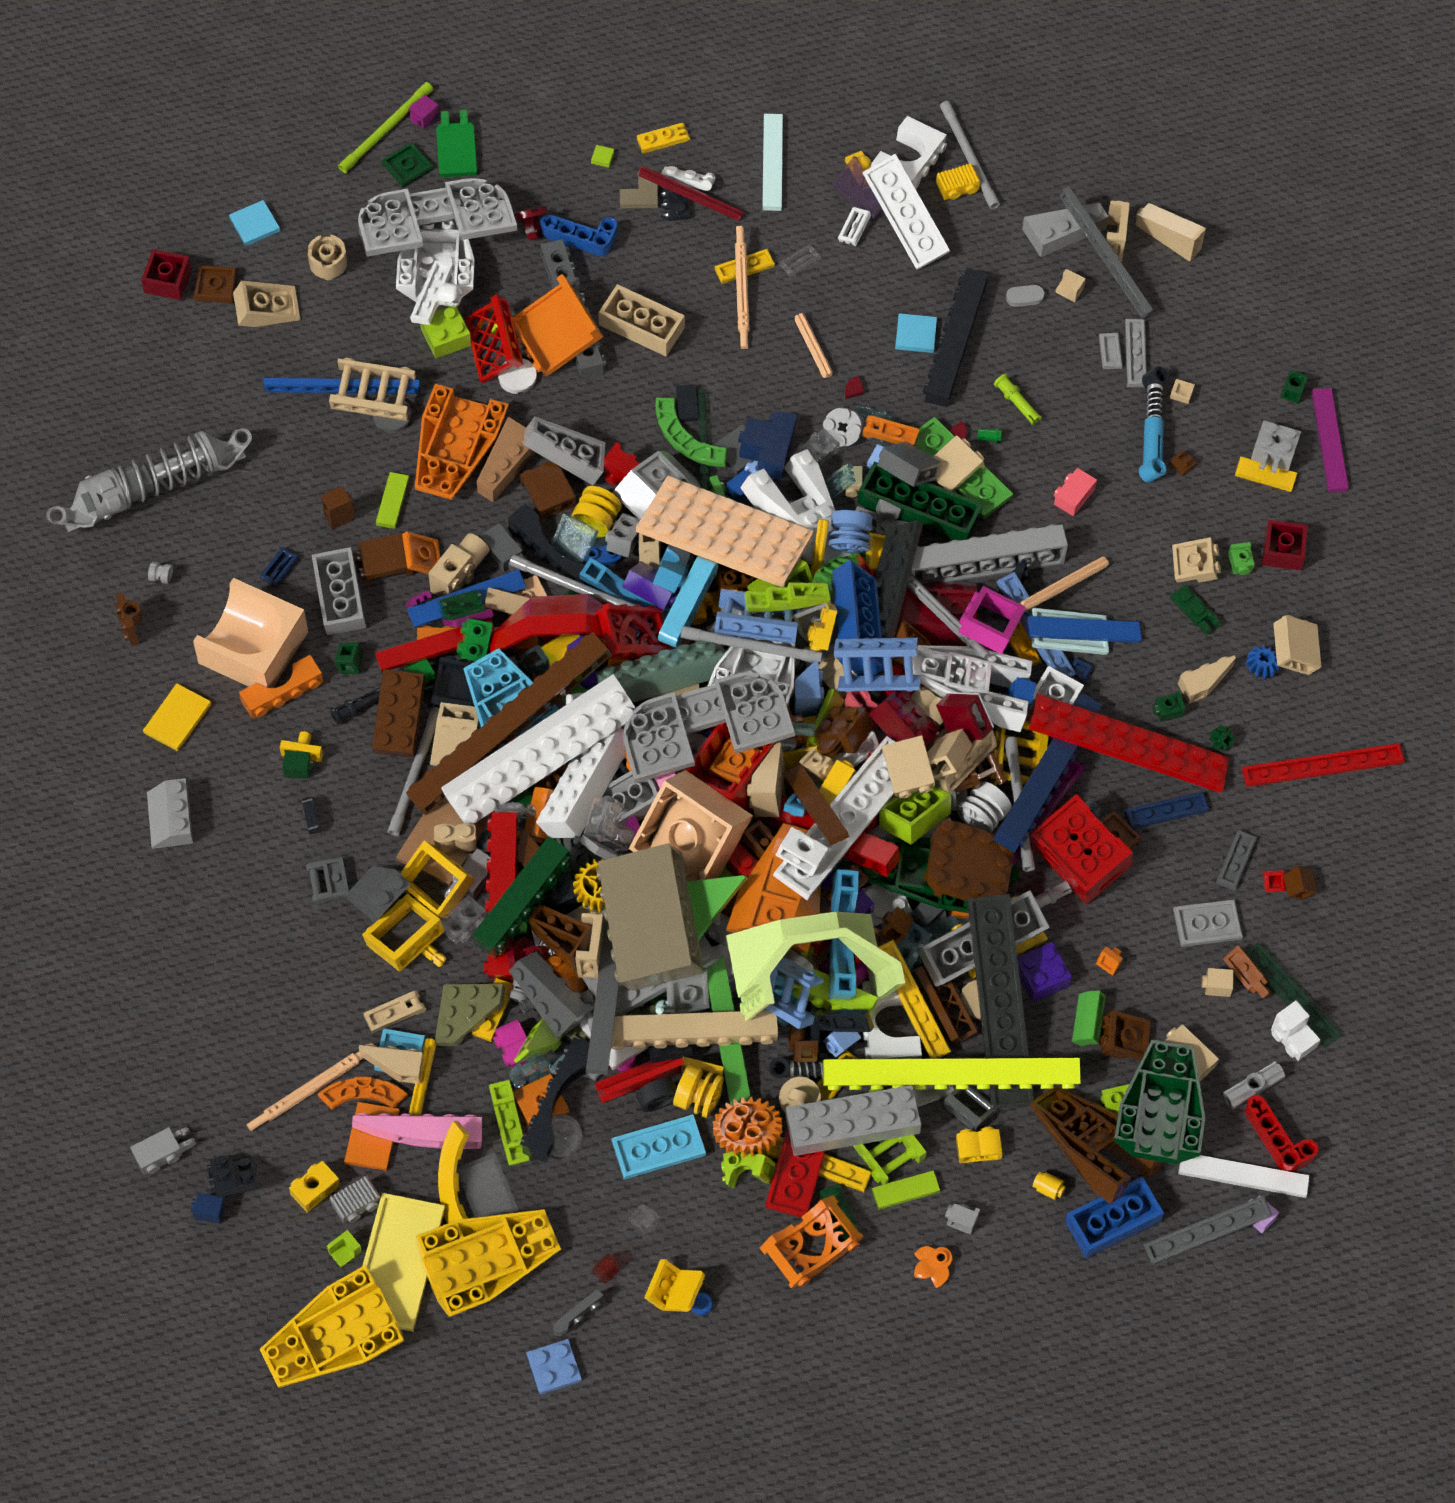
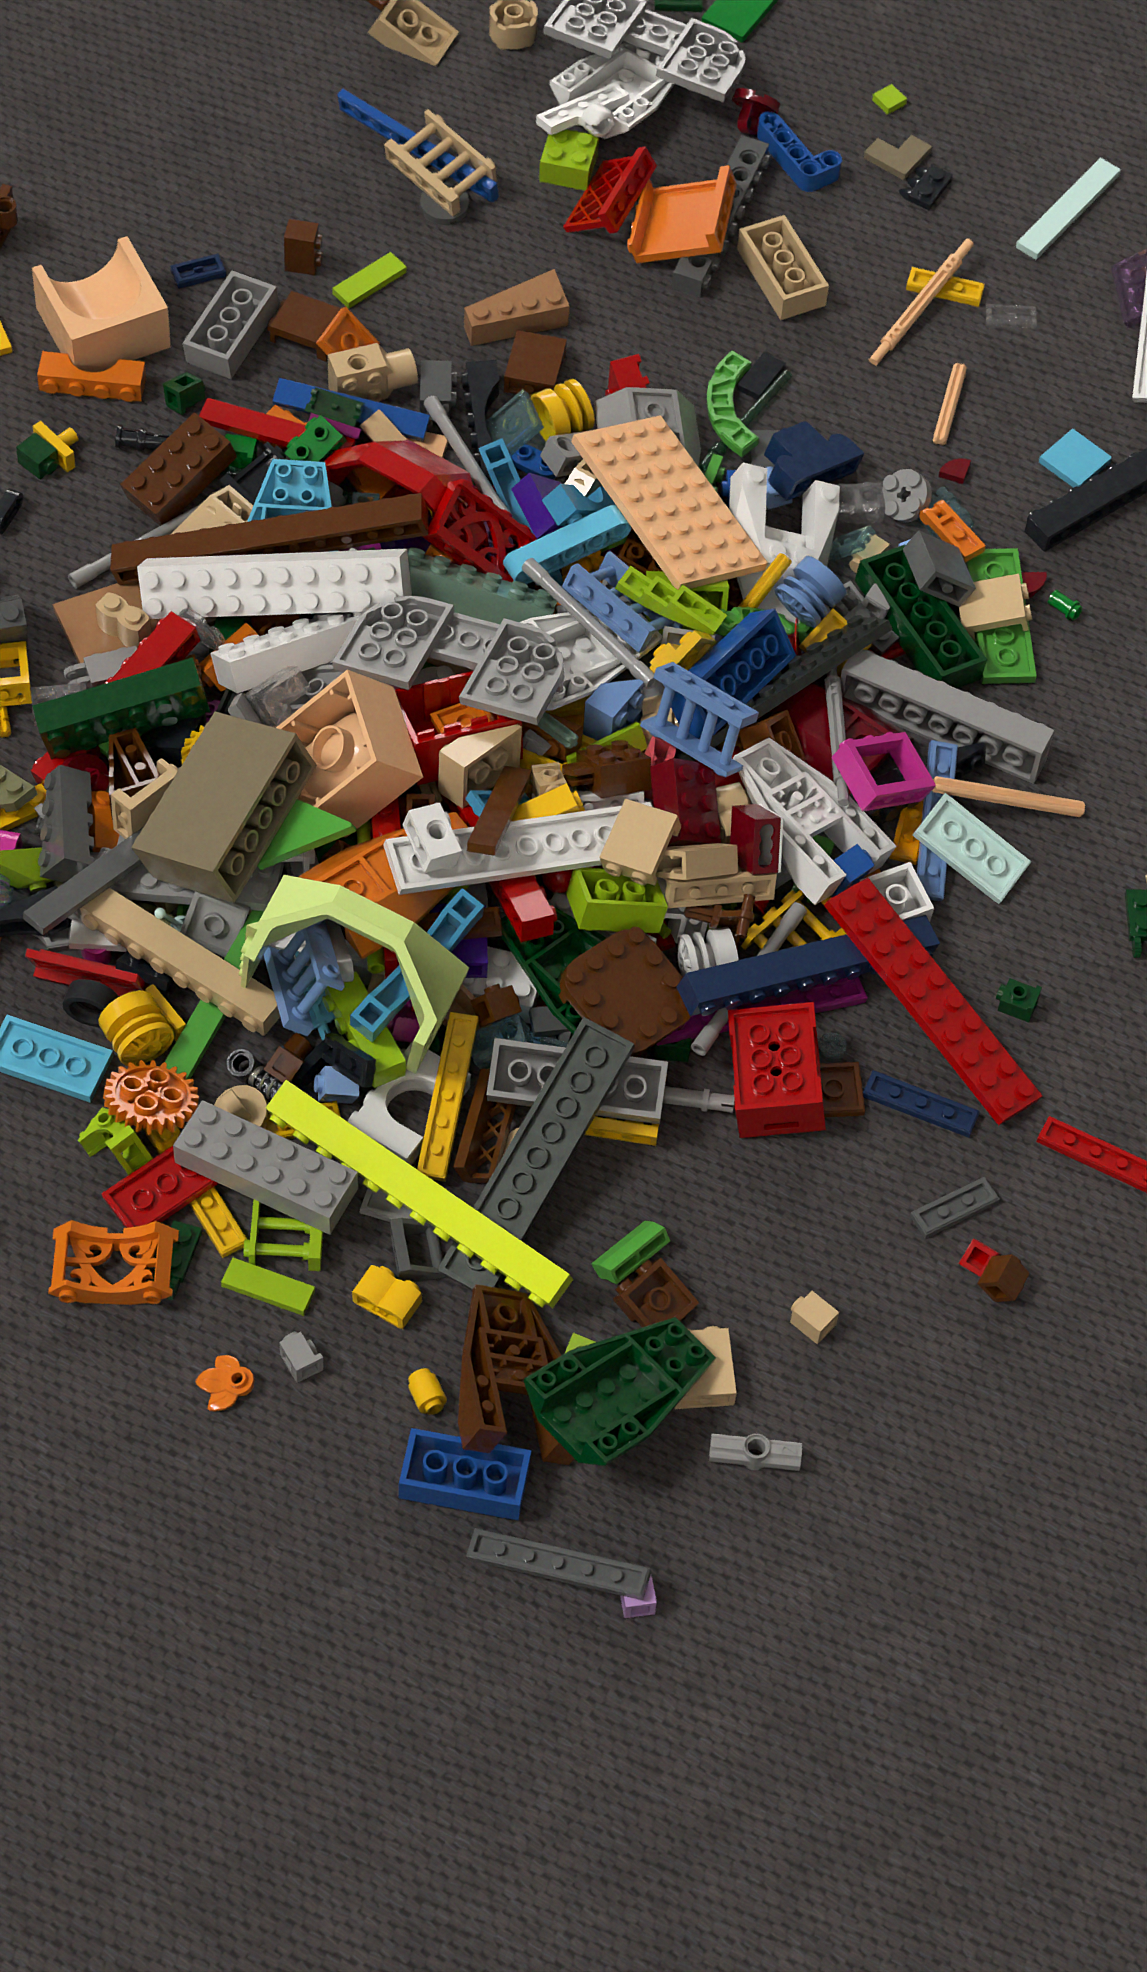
camera: 35 degrees right, 5 degrees down
(115, 490) = (101, 99): piece -> none
(160, 572) = (73, 199): light grey wheel -> none
(416, 864) = (40, 629): yellow window -> none
(418, 599) = (290, 371): magenta tile -> none
(454, 440) = (478, 258): orange wedge -> none
(518, 379) = (605, 247): white tile -> none
(566, 448) = (583, 330): light grey wedge -> none
(663, 138) = (970, 119): yellow hinge -> none
(690, 178) = (959, 168): white plate -> none
(690, 193) = (947, 182): dark red axle -> none
(857, 226) = (1100, 318): white tile -> none
(1012, 393) = (1128, 580): lime pin -> none
(1043, 972) = (622, 1169): dark purple brick -> none
(1075, 491) = (1109, 718): coral brick -> none
(1081, 669) = (954, 900): dark blue tile -> none
(1083, 629) = (988, 855): blue tile -> none
(1110, 960) = (711, 1209): orange tile -> none
(1200, 682) = (1083, 998): tan slope -> none
(1207, 923) = (860, 1250): light grey tile -> none
(1222, 737) = (1048, 1062): dark green gear -> none
(1246, 1175) = (659, 1540): white tile -> none
(1247, 972) = (858, 1330): dark orange hinge -> none
(1277, 1133) = (732, 1519): red beam -> none
(1289, 992) = (889, 1391): clear green tile -> none
(1292, 1030) = (852, 1422): white brick -> none

